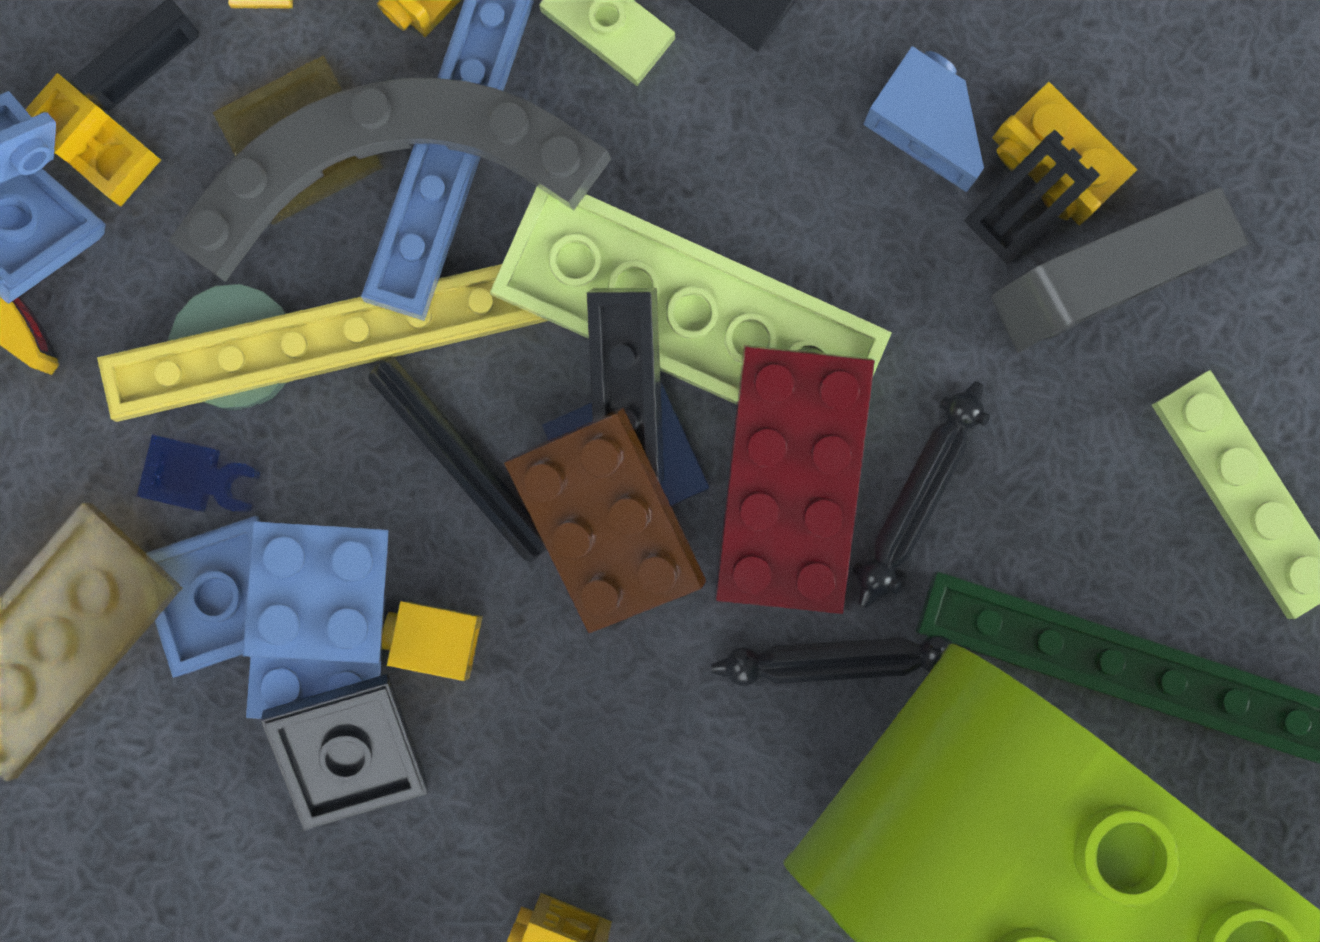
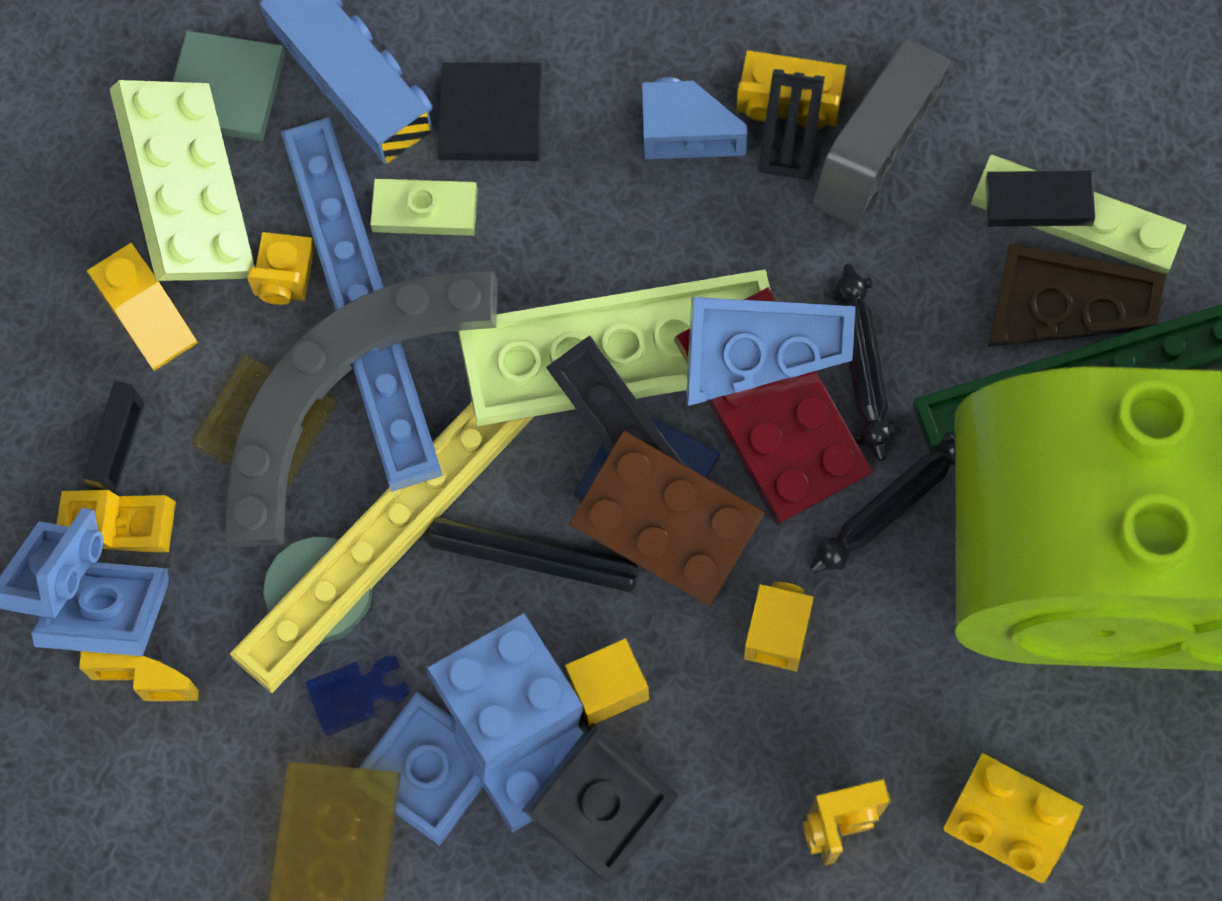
camera: 30 degrees left, 15 degrees down
(638, 703) = (778, 625): none -> yellow brick
(817, 415) = (760, 342): none -> medium blue wing
(1174, 575) = (1070, 297): none -> dark brown wing
(1221, 457) = (1040, 198): none -> black tile

